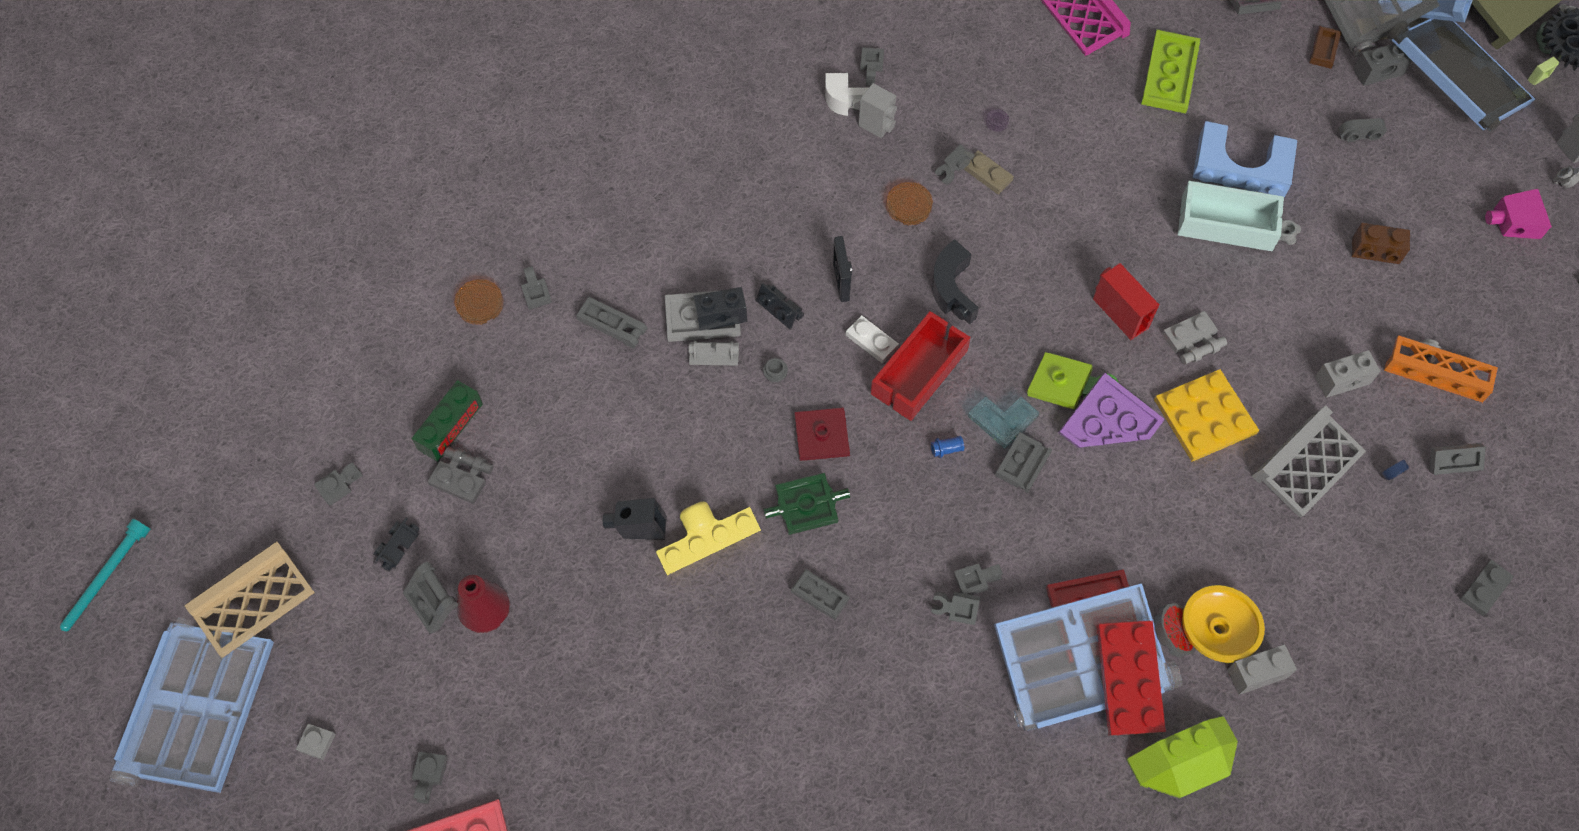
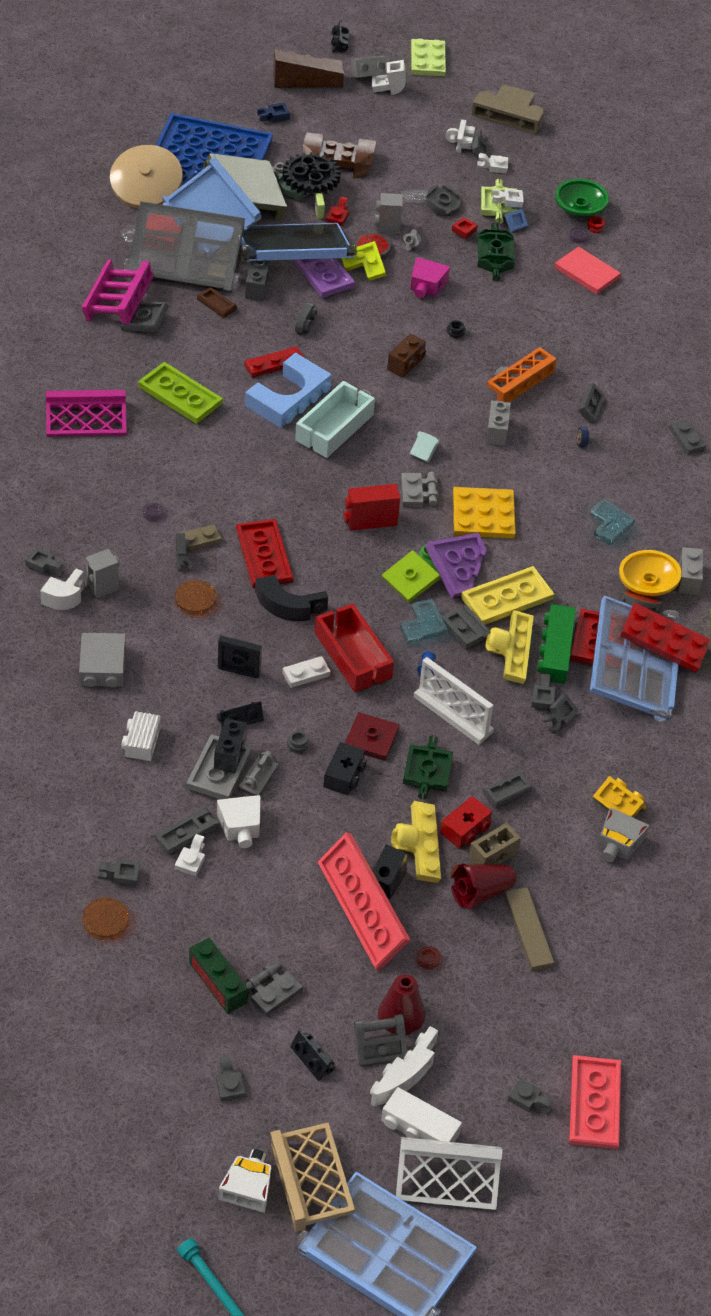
camera: 70 degrees left, 15 degrees down
(224, 548) = (247, 1182): none -> white torso
(308, 724) = (454, 1151): none -> white fence
(350, 677) = (419, 1118): none -> white brick
(402, 637) = (408, 1071): none -> white slope
(563, 604) = (428, 957): none -> clear red tile
(581, 340) = (191, 859): none -> white plate
(592, 511) = (363, 901): none -> coral tile
(646, 361) = (240, 818): none -> white torso
(646, 690) = (529, 929): none -> dark tan tile
(675, 618) = (480, 883): none -> dark red cone
(703, 234) = (142, 736): none -> white brick
(724, 610) = (495, 846): none -> dark tan brick
(741, 560) = (466, 822): none -> red brick
(769, 417) = (344, 769): none -> black brick
(778, 161) = (102, 659): none -> light grey brick
(815, 738) = (621, 835): none -> light grey torso
(869, 719) = (617, 796): none -> yellow bracket
(900, 495) = (456, 712): none -> white fence
(1008, 235) = (264, 551): none -> red tile
(1025, 521) = (513, 645): none -> light yellow plate
(1056, 564) = (557, 643): none -> green brick
(1096, 486) = (509, 593): none -> light yellow plate
(1258, 317) = (424, 446): none -> light aqua tile
(1270, 125) = (270, 362): none -> red plate
(1287, 557) = (614, 521): none -> clear light blue plate
(1290, 450) = (538, 479): light grey fence -> none
(1442, 123) = (325, 275): none -> medium lavender plate
(1468, 271) = (456, 328): none -> black plate
(1500, 148) = (369, 257): none -> neon yellow plate
(1527, 145) = (382, 243): none -> tile
(1550, 95) = (338, 214): none -> red plate

